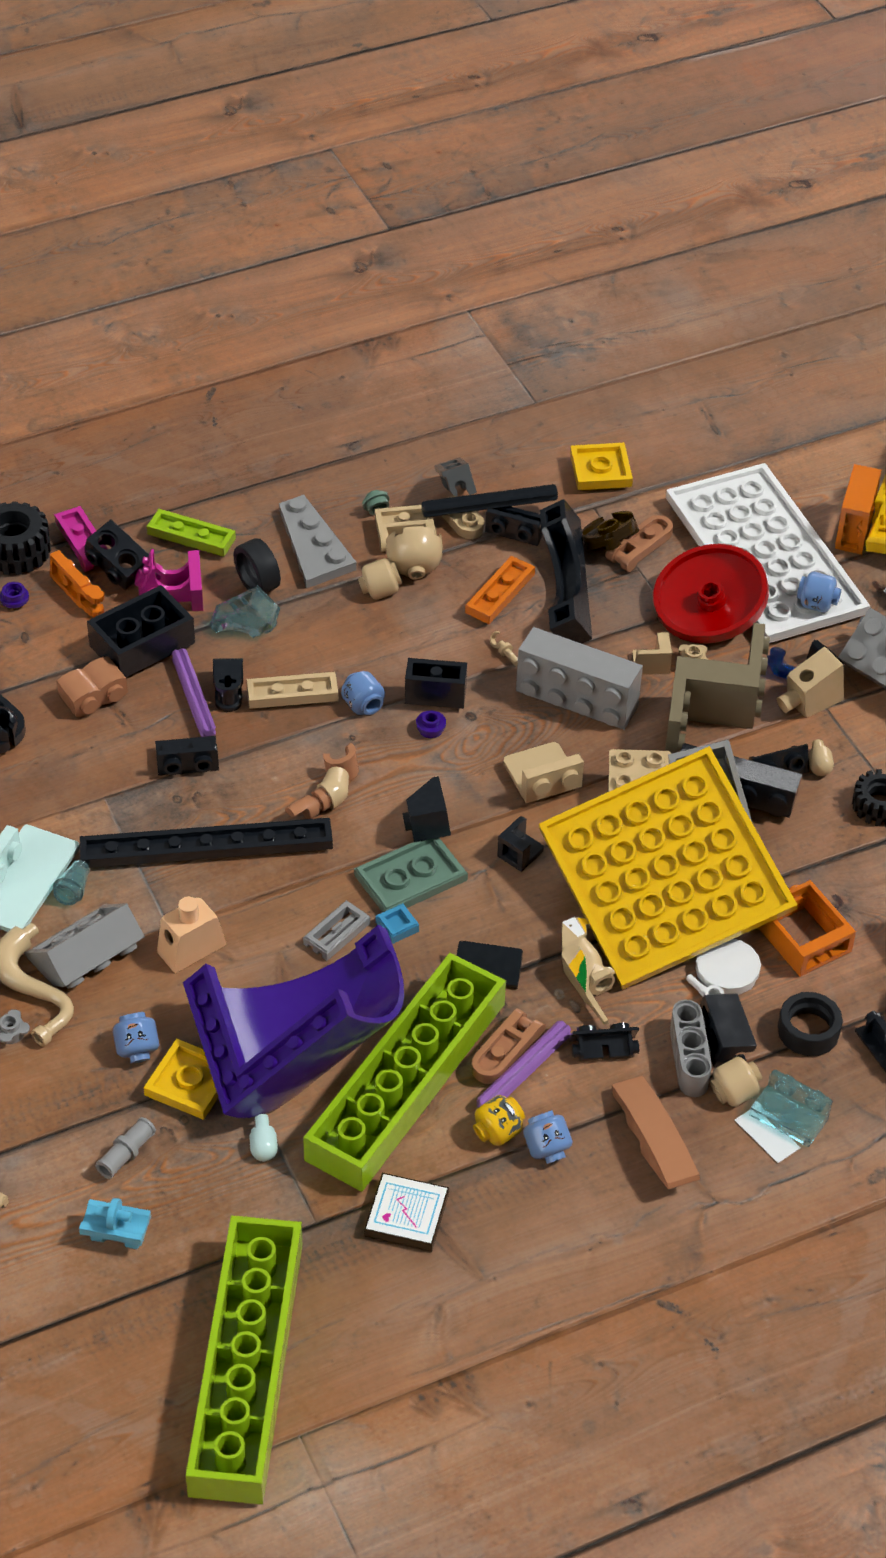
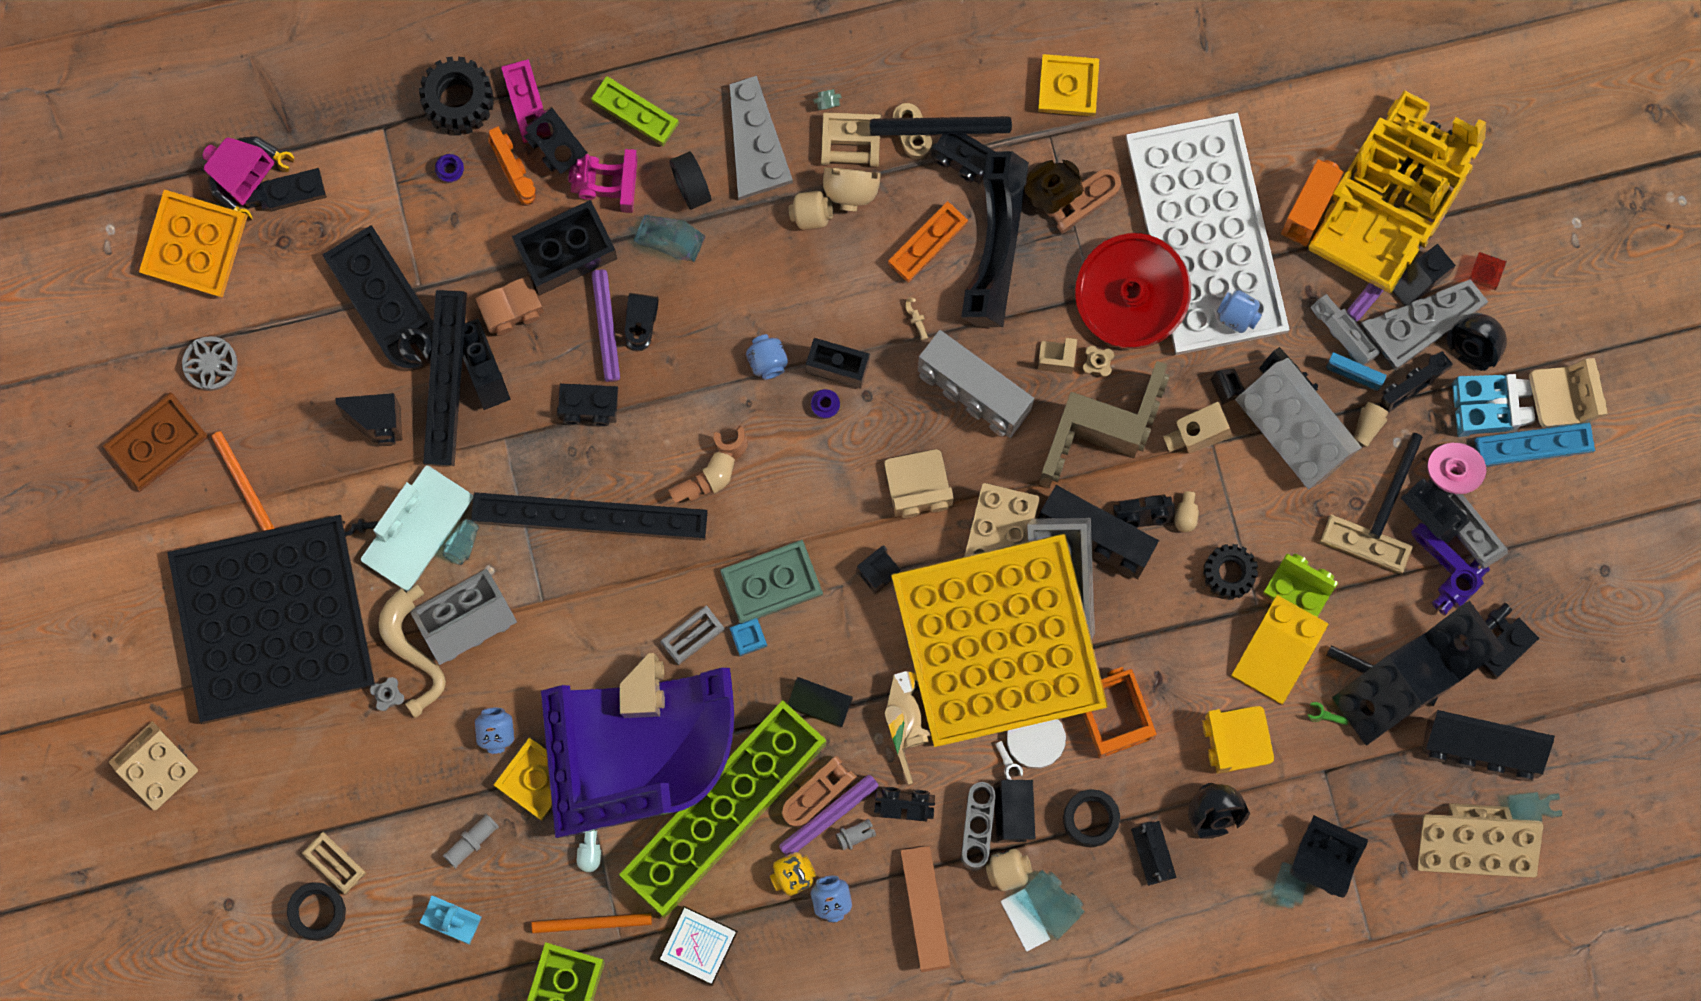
camera: 10 degrees right, 30 degrees up
(34, 747) = (445, 378): none -> black plate
(72, 737) = (483, 366): none -> black slope
(189, 934) = (558, 626): light nougat torso -> none
(283, 1207) = (591, 923): none -> orange bar
(291, 976) = (641, 690): none -> tan slope
(292, 690) = (700, 340): tan plate -> none
(427, 812) = (798, 521): black slope -> none
(456, 473) = (911, 88): dark grey hinge -> none
(552, 1080) = (854, 834): none -> light grey pin
(777, 663) = (1180, 389): clear blue arm -> none

